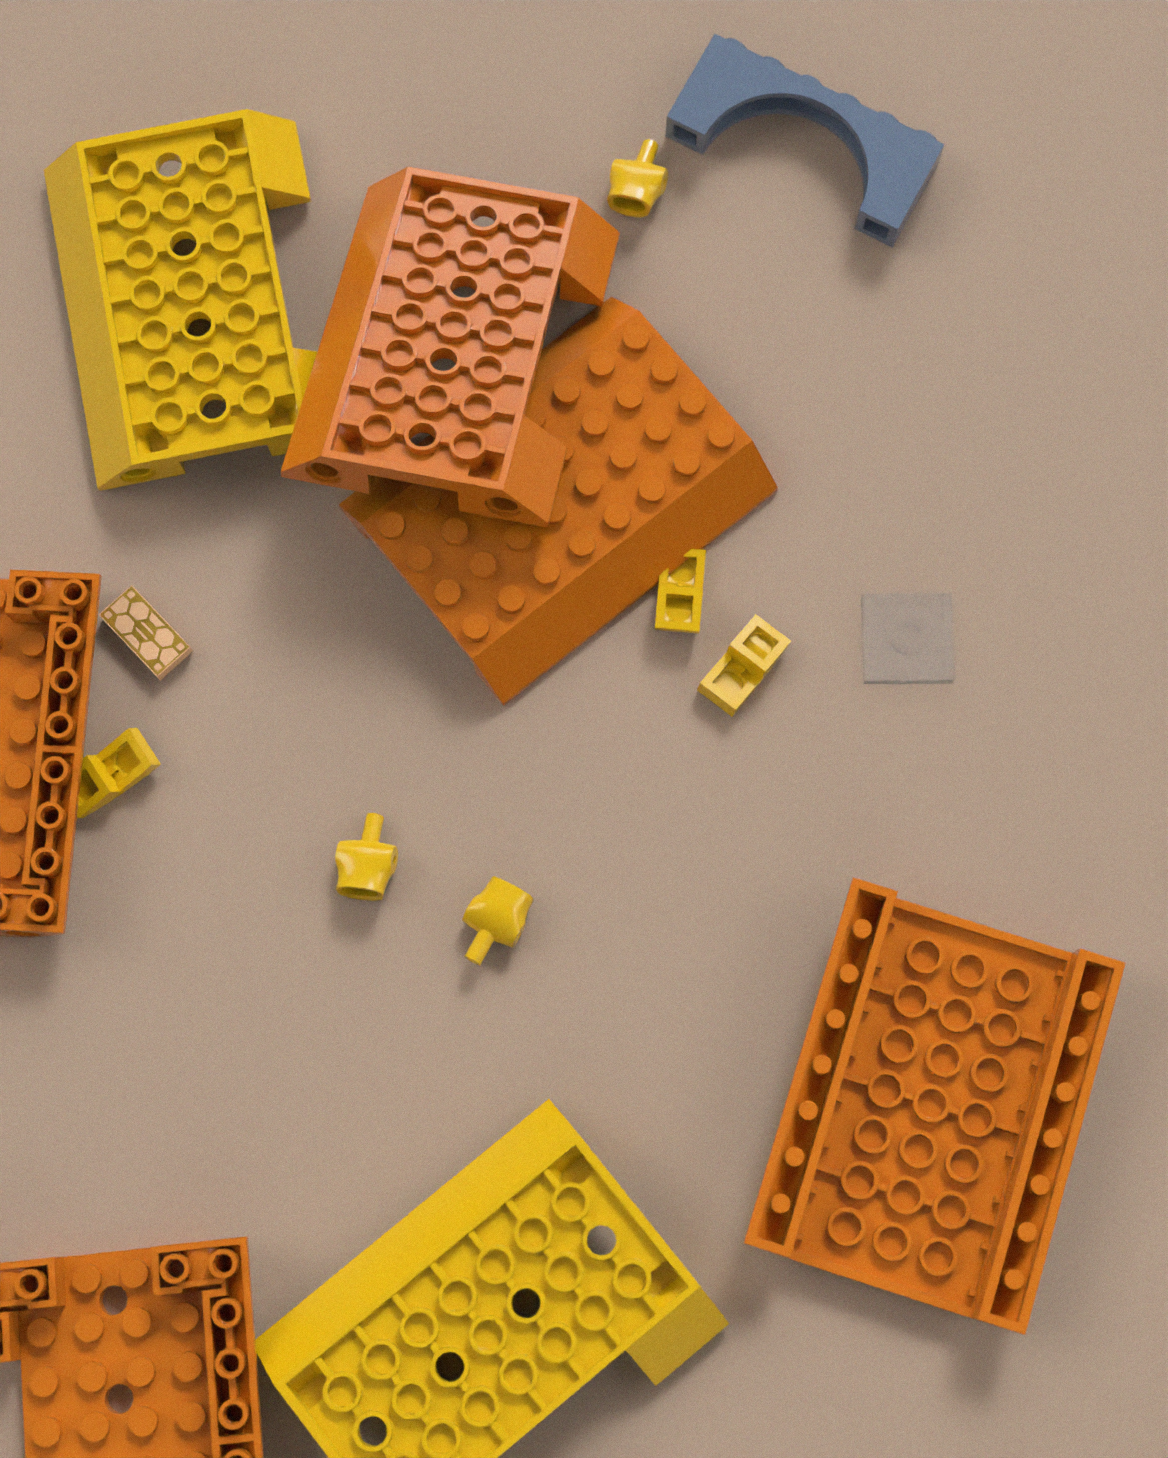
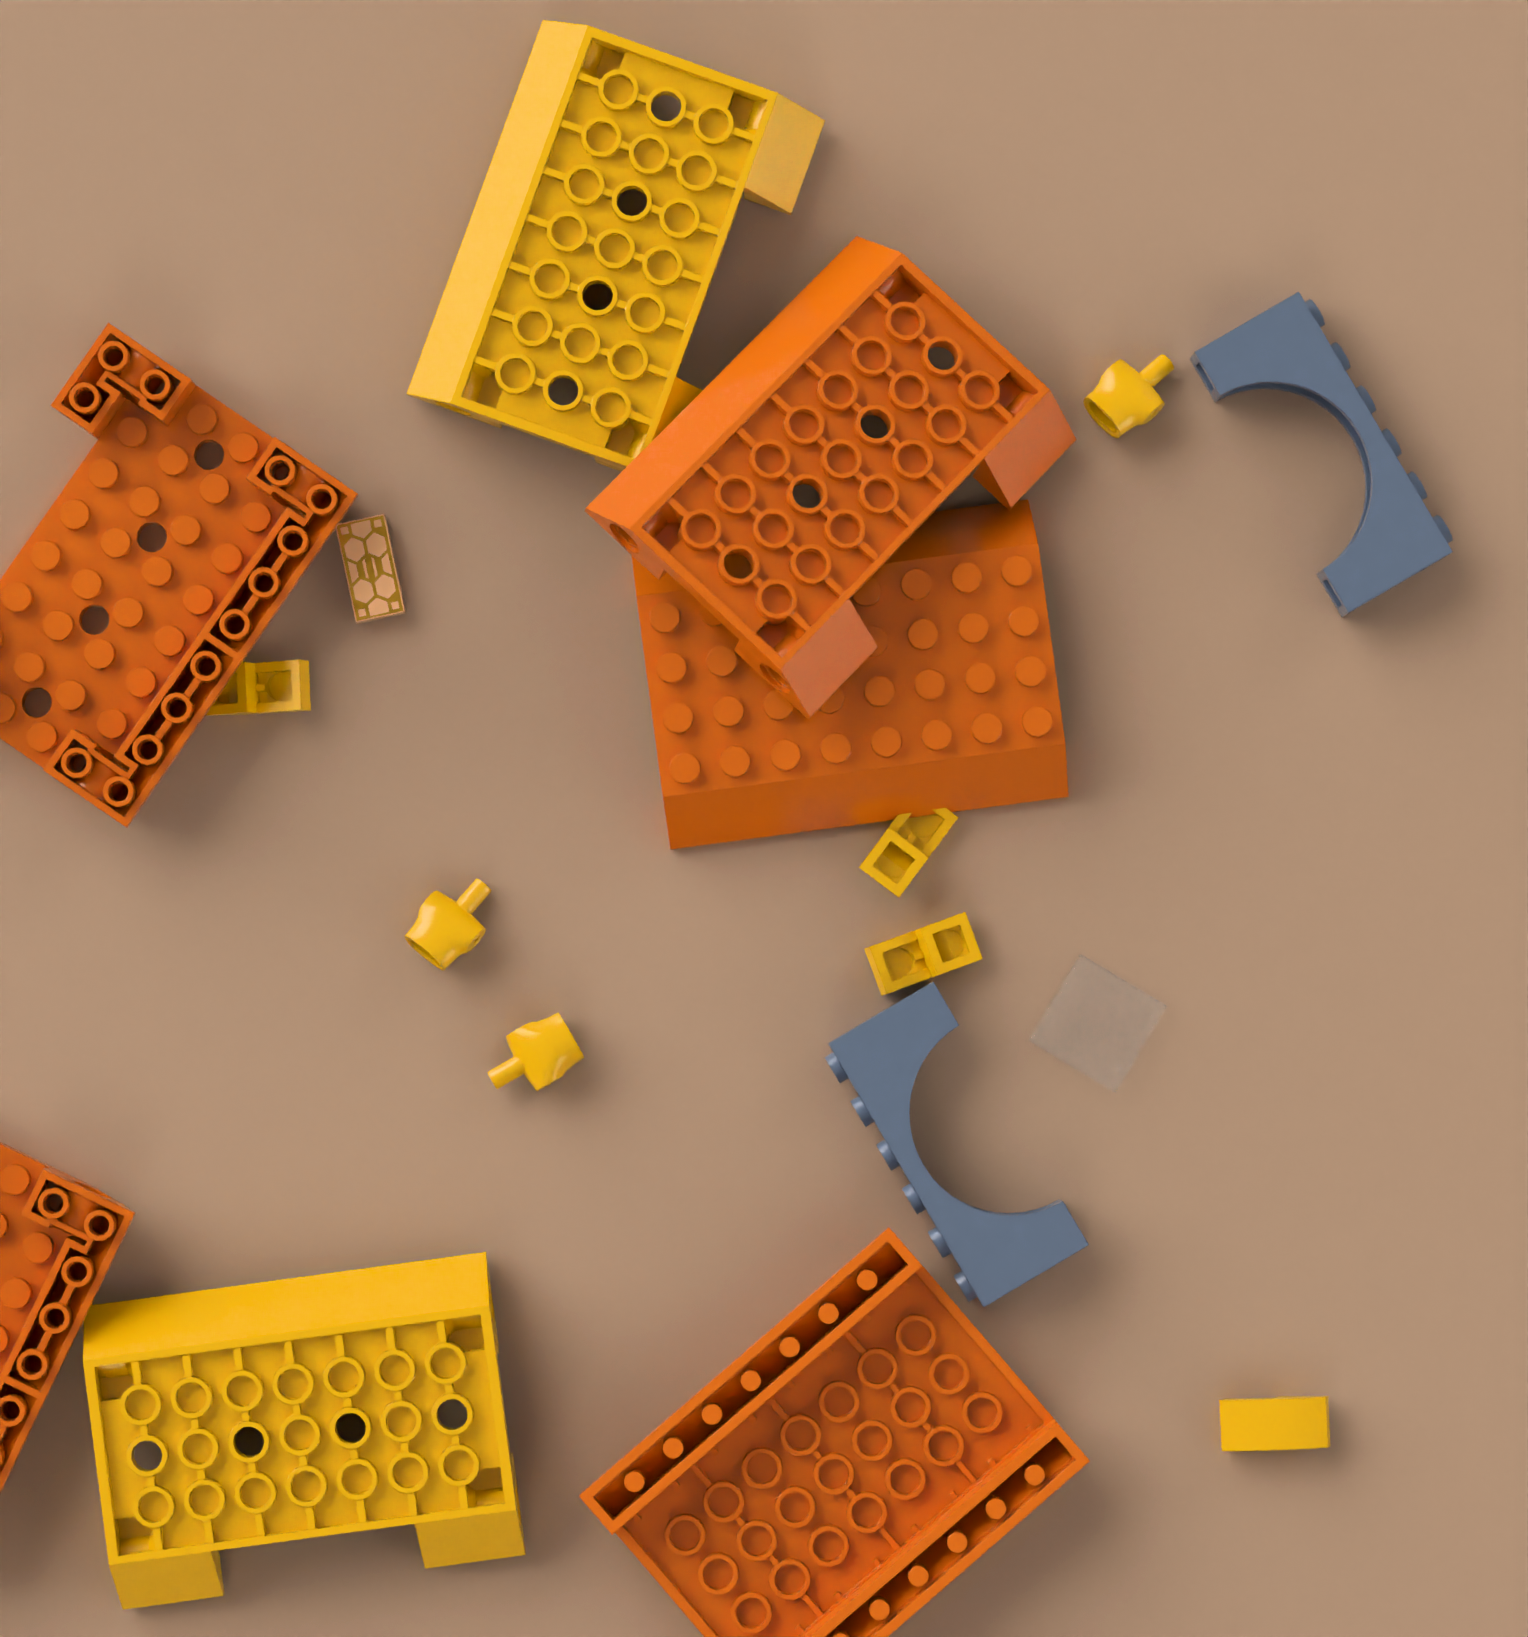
camera: 25 degrees right, 10 degrees up
(933, 853) = (990, 1247): none -> sand blue arch

